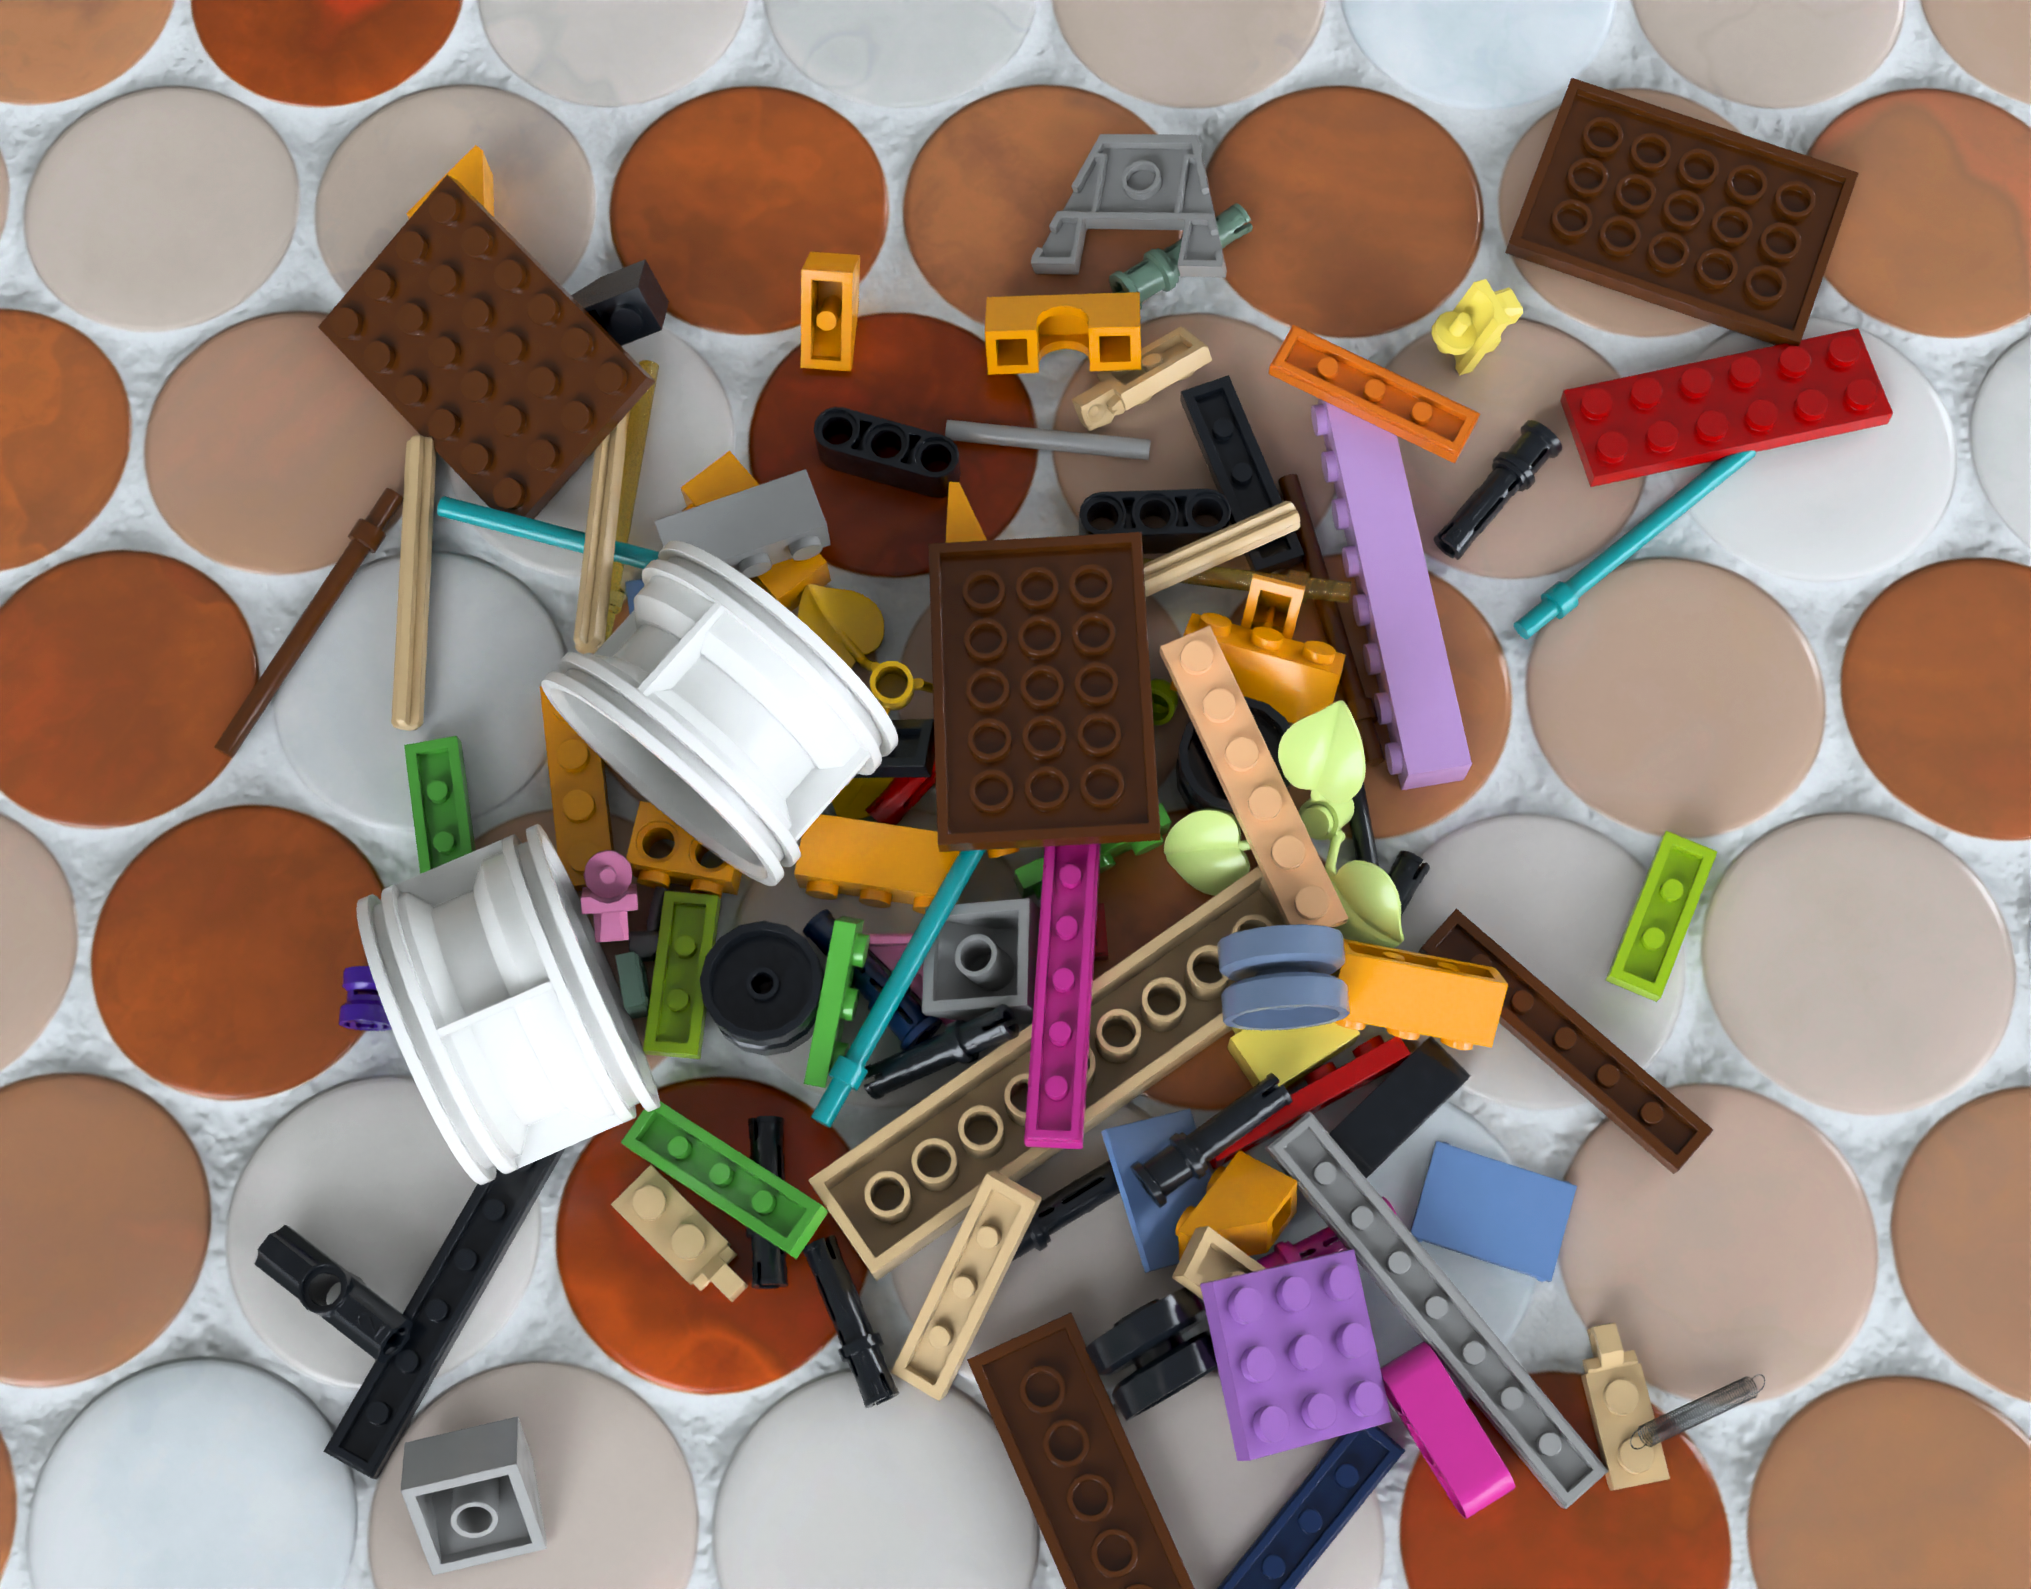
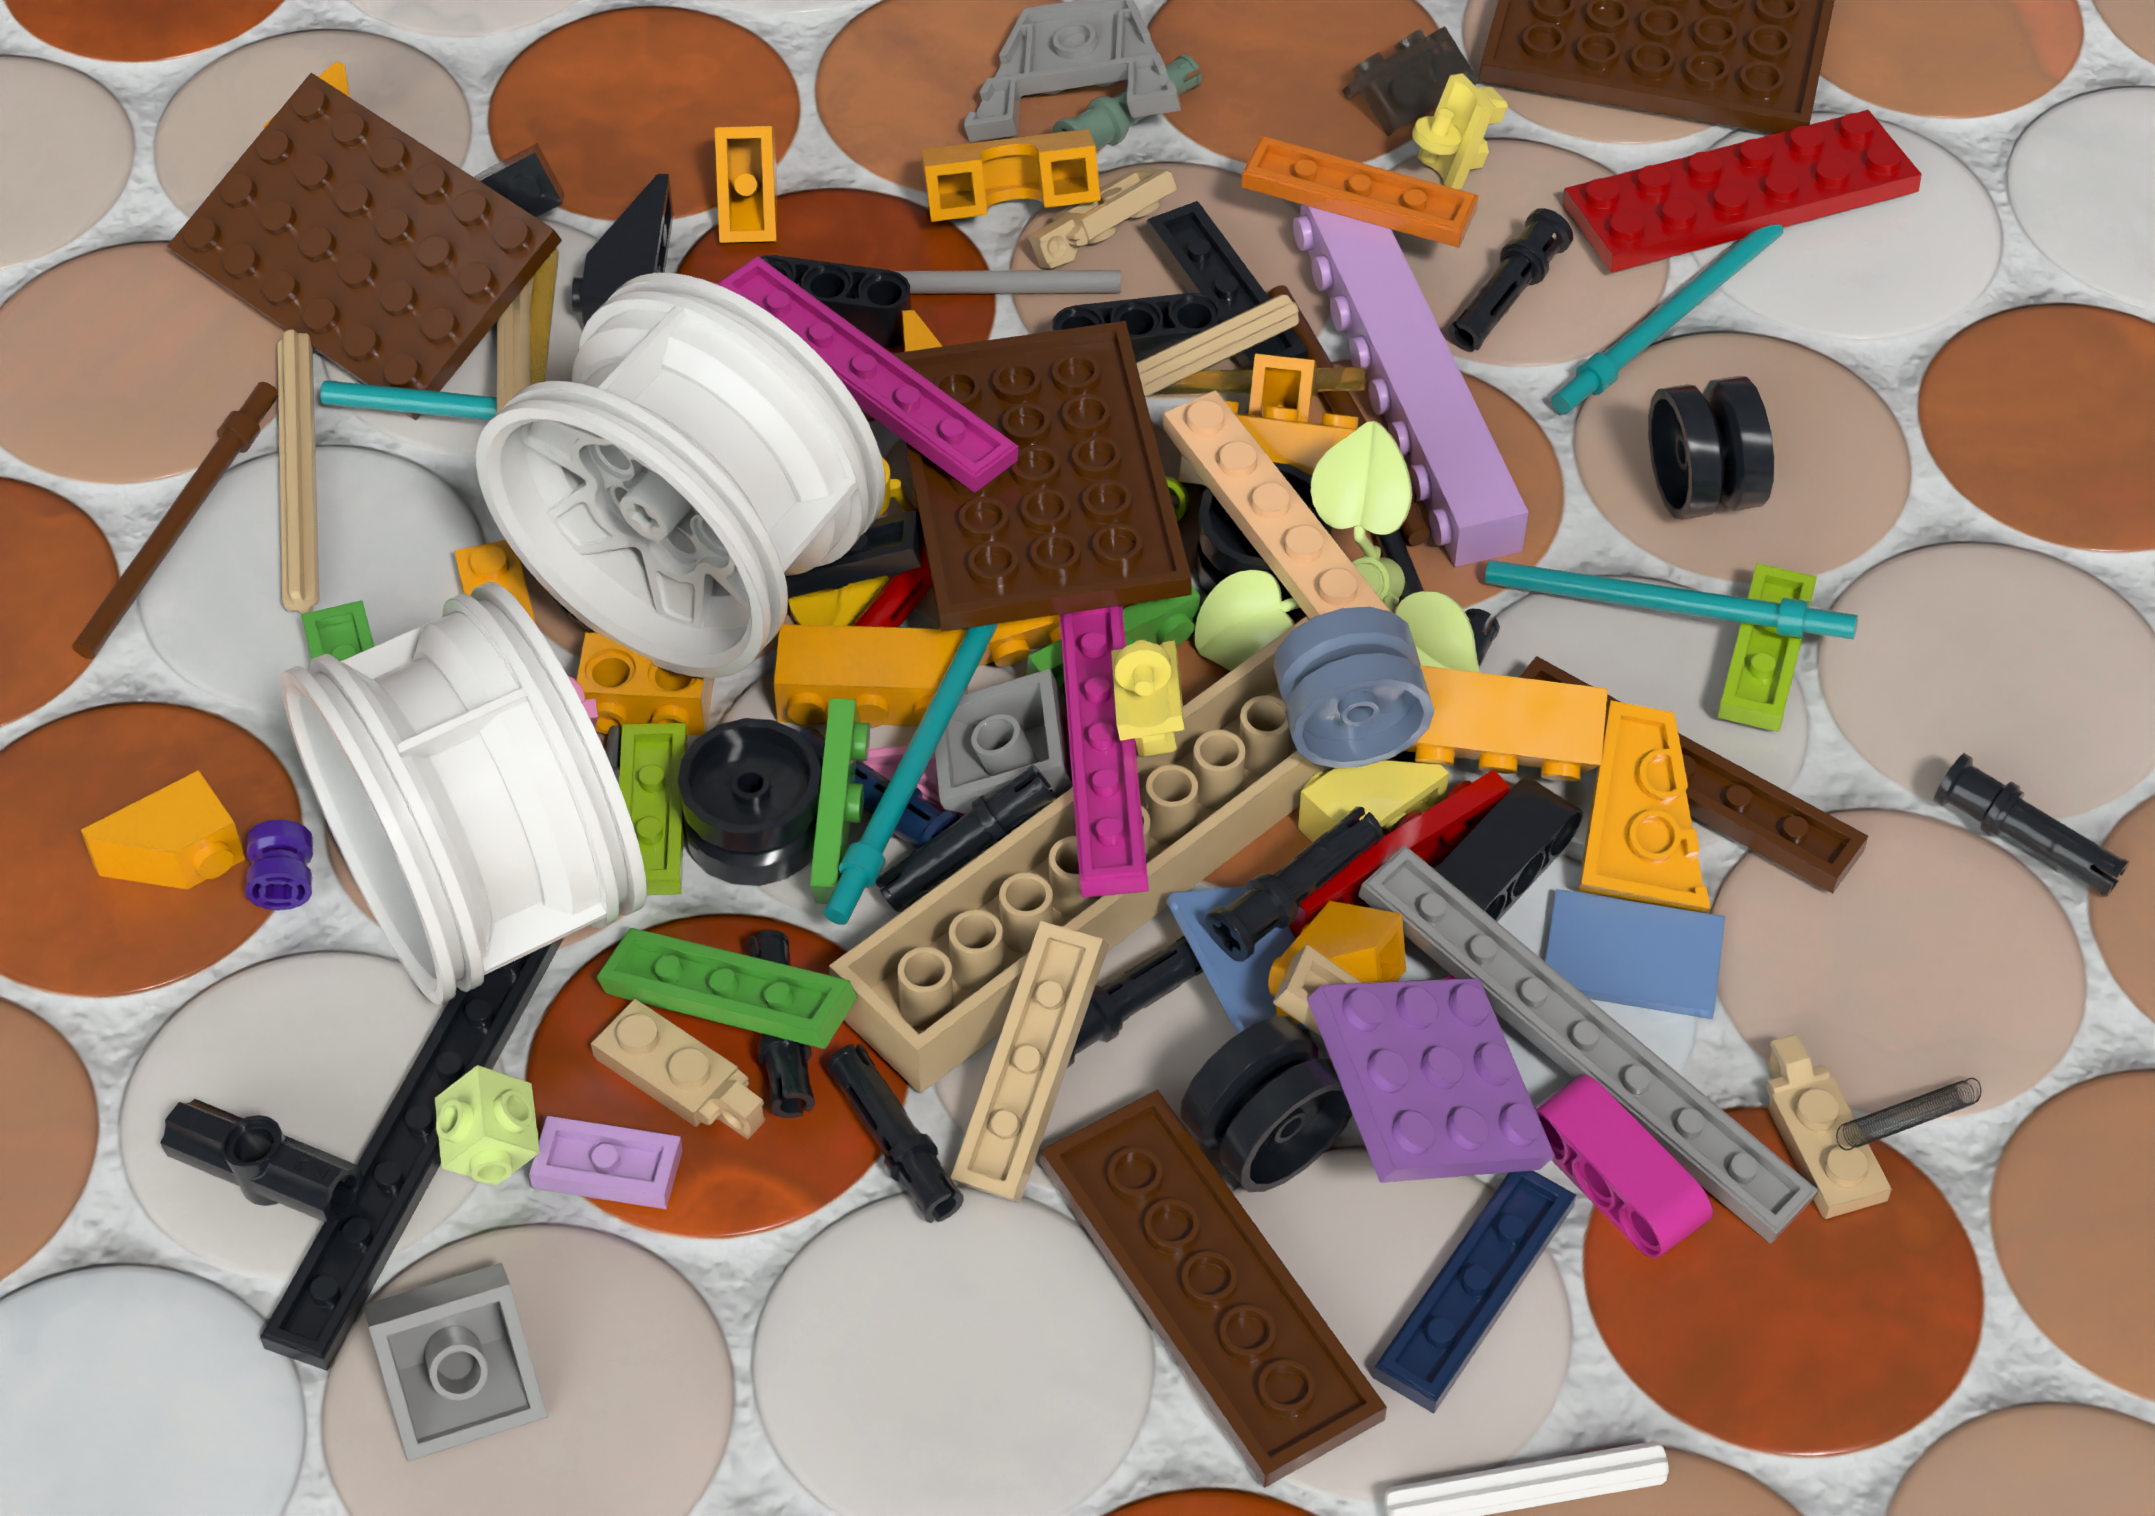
camera: 10 degrees left, 20 degrees down
(282, 959) = (167, 837): none -> light orange slope
(517, 1285) = (486, 1125): none -> yellowish green brick
(612, 1321) = (606, 1162): none -> lavender plate
(716, 394) = (629, 248): none -> black slope
(902, 577) = (882, 382): none -> dark pink tile
(1107, 949) = (1148, 696): none -> light yellow hips
(1443, 251) = (1410, 80): none -> clear smoke bracket
(1519, 1089) = (1640, 817): none -> light orange wing
(1645, 713) = (1711, 447): none -> black wheel
(1685, 900) = (1790, 616): none -> teal bar
(1837, 1111) = (2003, 810): none -> black pin

